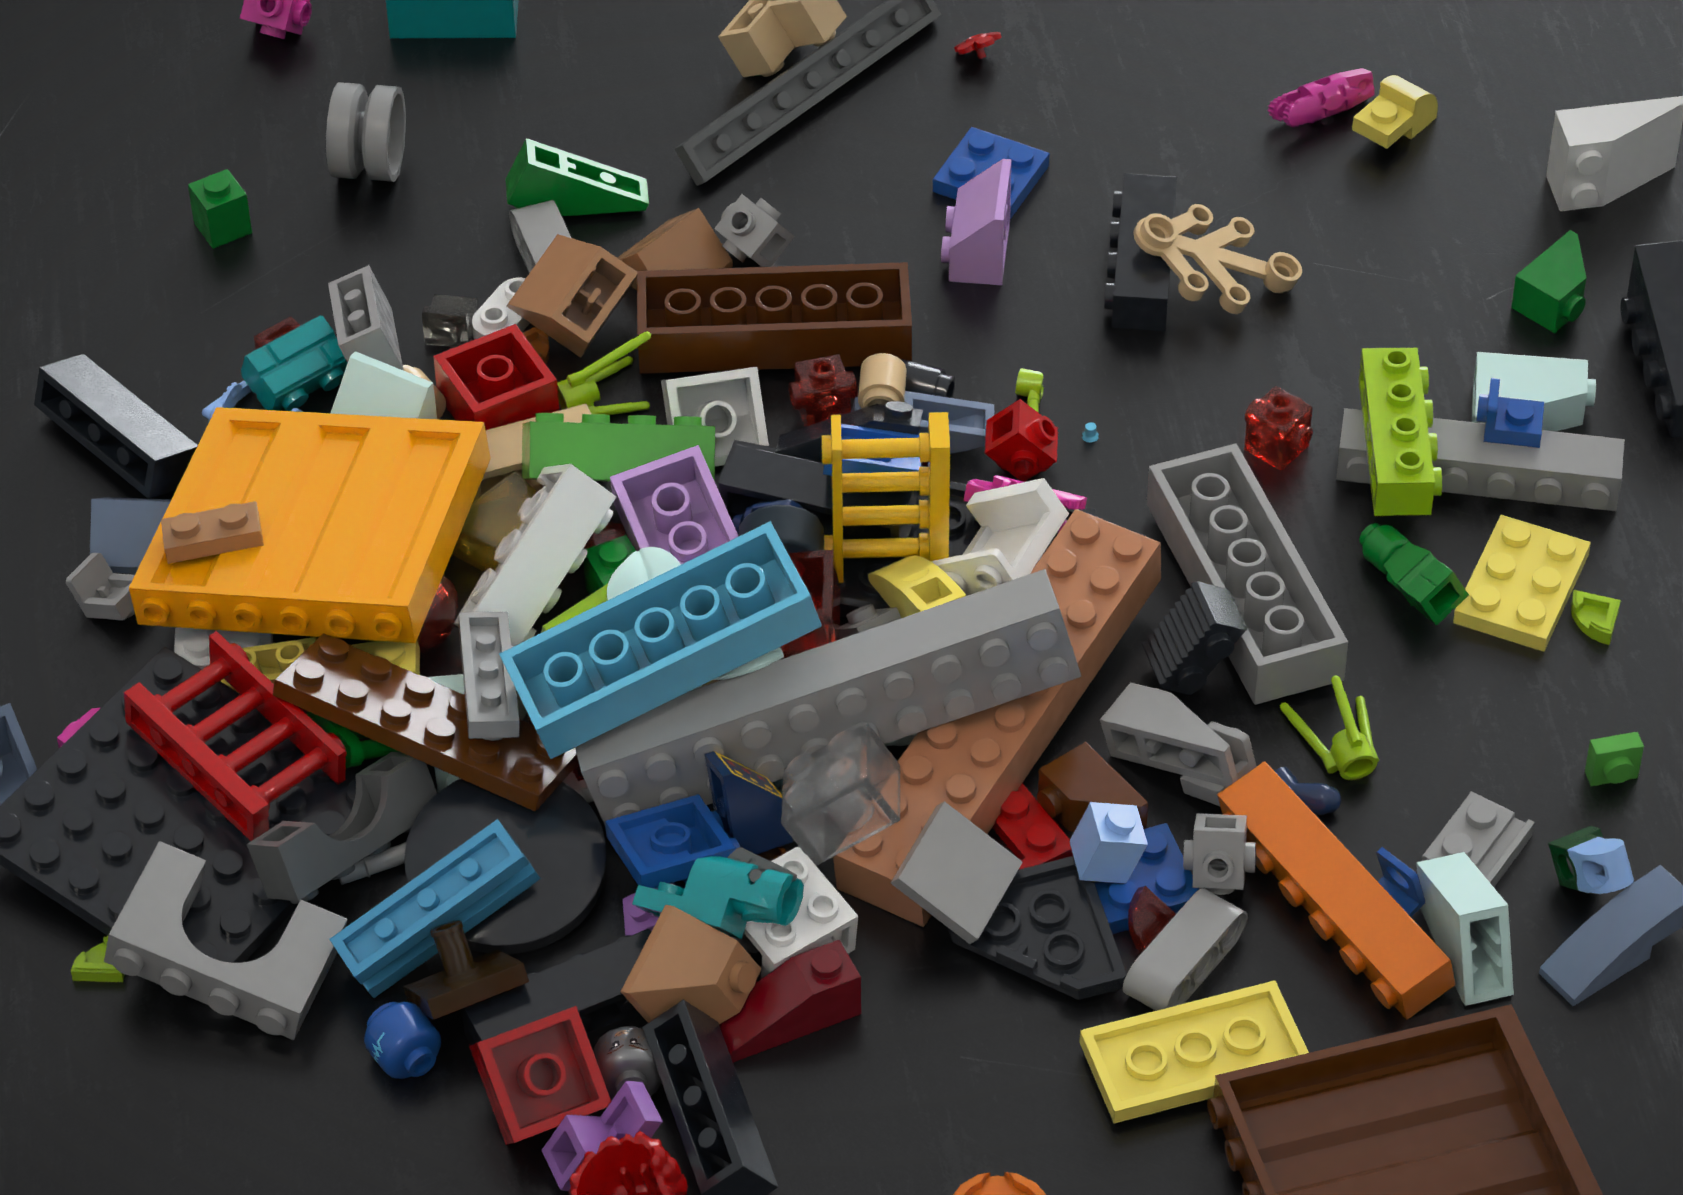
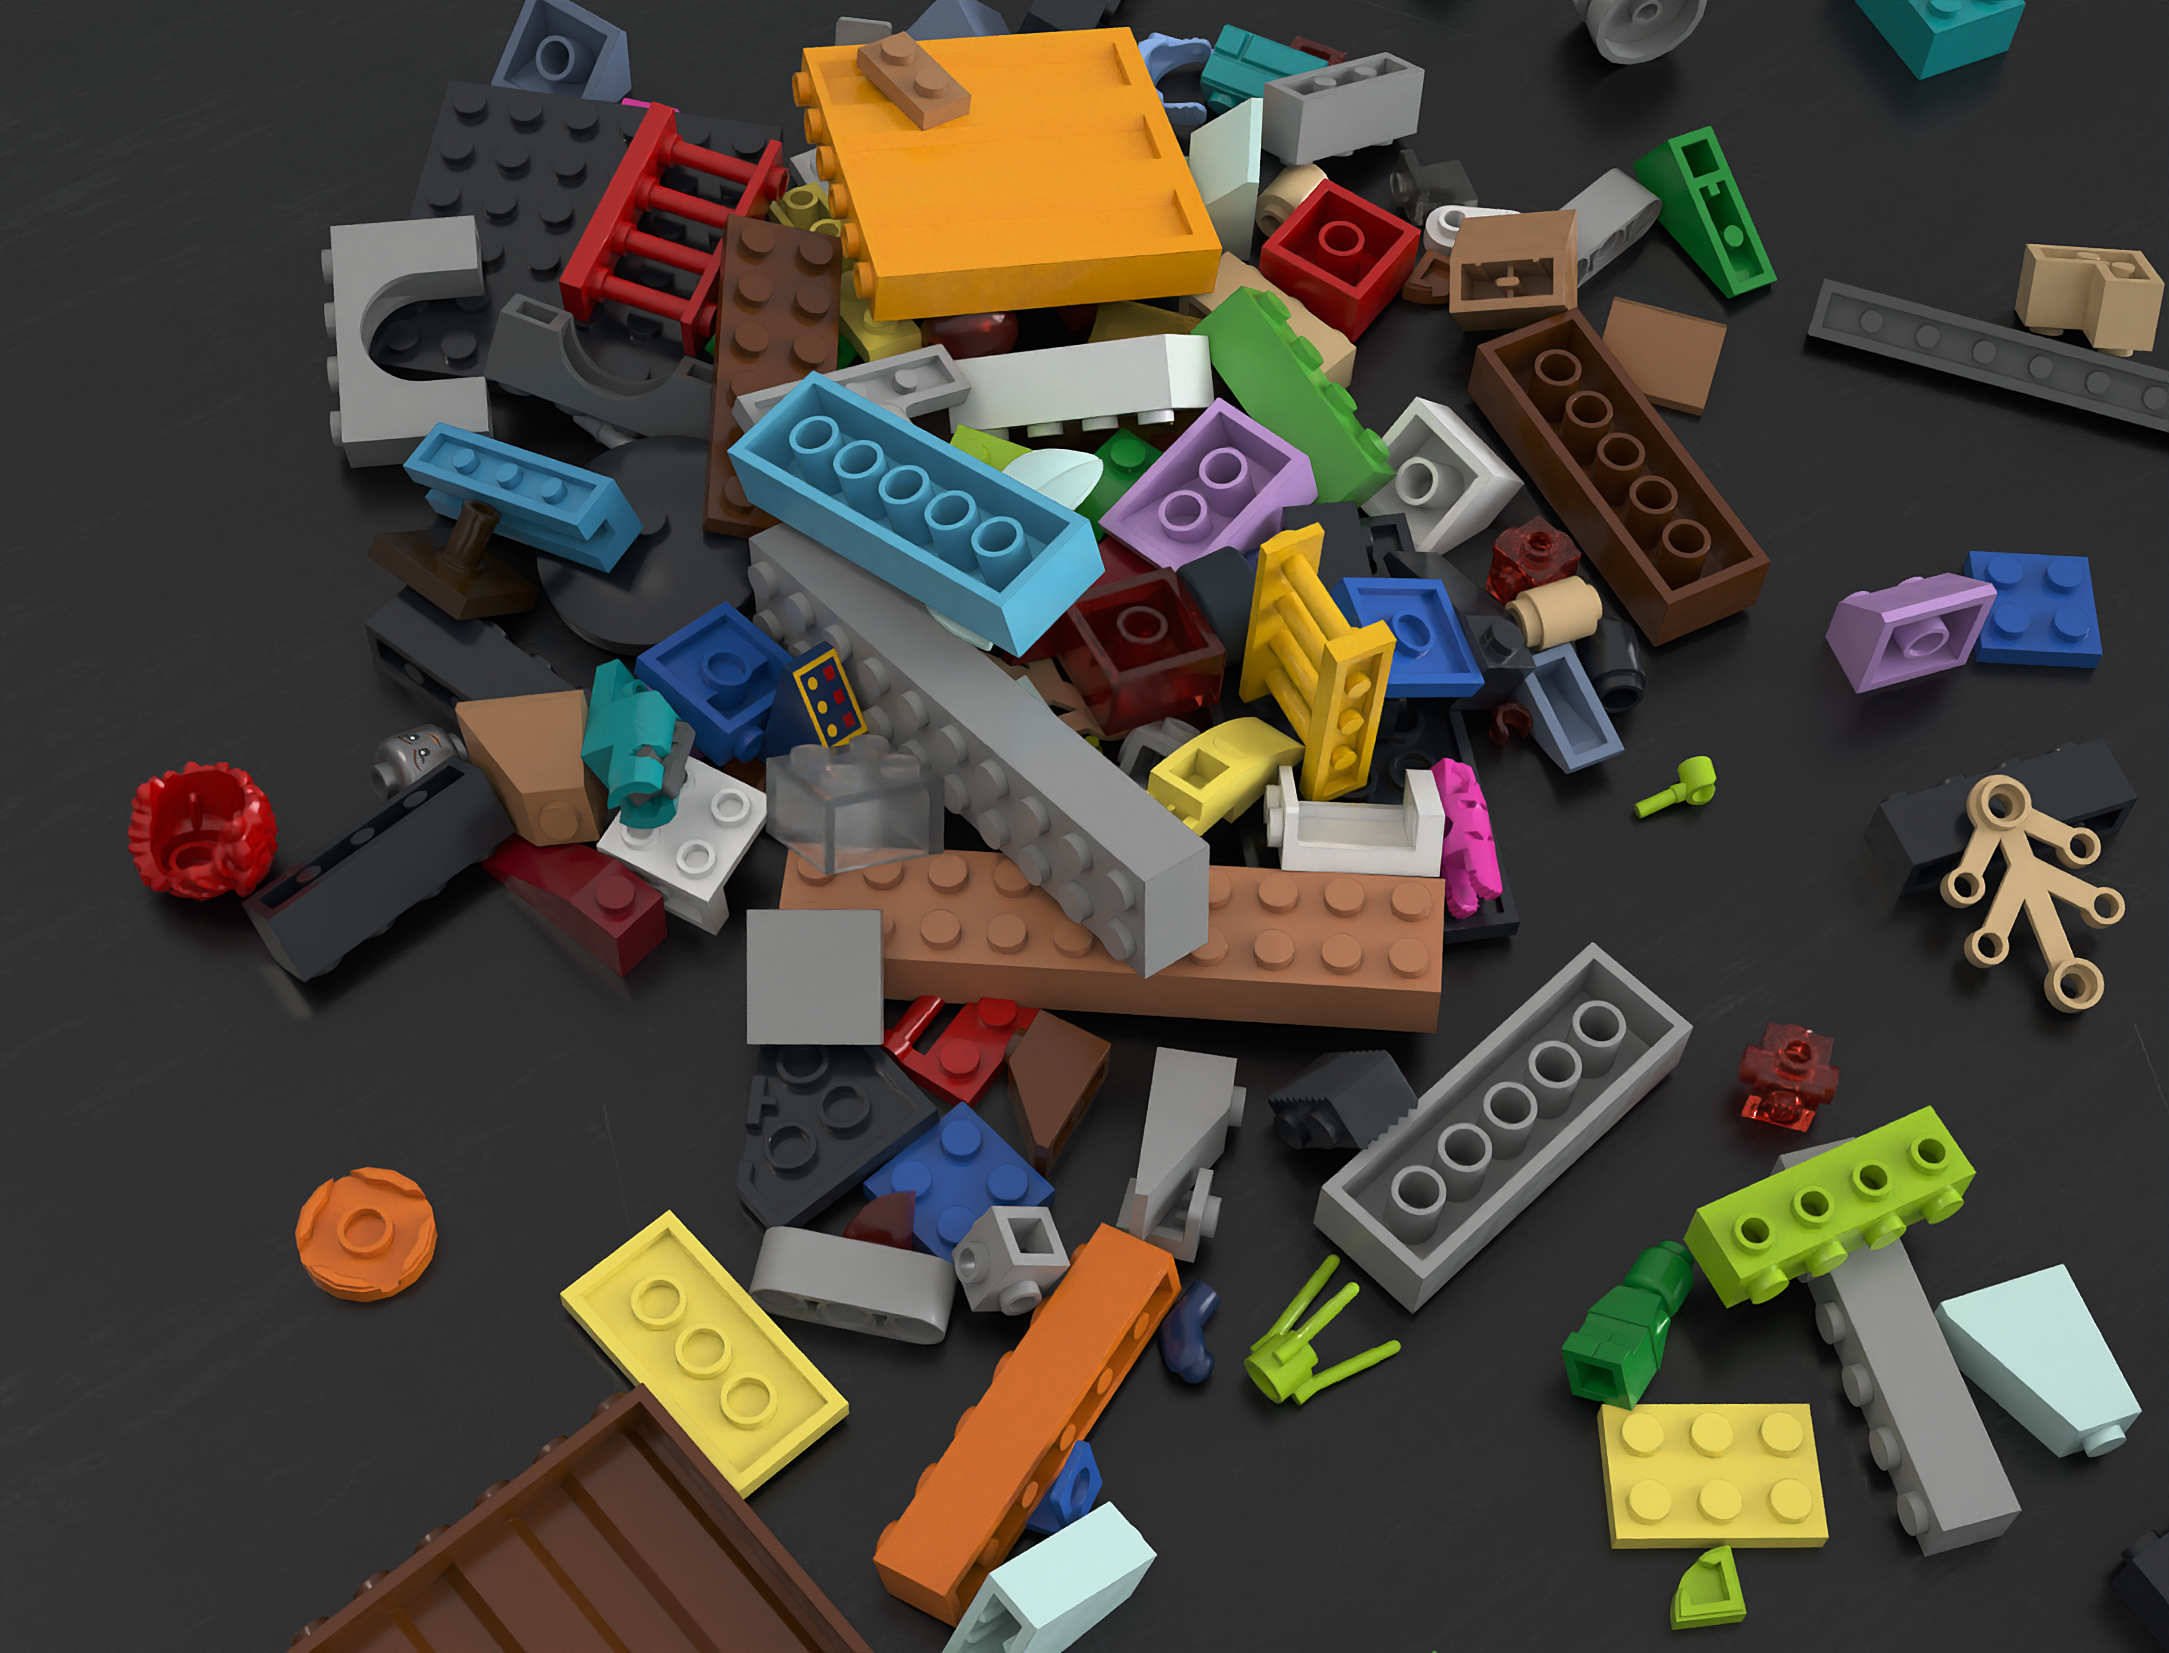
camera: 60 degrees right, 10 degrees up
(401, 1038) = (347, 548): blue head -> none
(540, 1075) = (340, 684): red brick -> none
(577, 1134) = (300, 792): medium lavender brick -> none
(582, 387) = (1395, 344): lime plant -> none
(753, 231) = (1742, 404): light grey brick -> none
(1021, 440) = (1577, 799): red brick -> none
(1090, 434) = (1666, 877): medium azure piece -> none
(1108, 842) = (942, 1122): light blue brick -> none
(1486, 835) = (1216, 1577): light grey plate -> none
(1510, 419) = (1953, 1342): blue bracket -> none

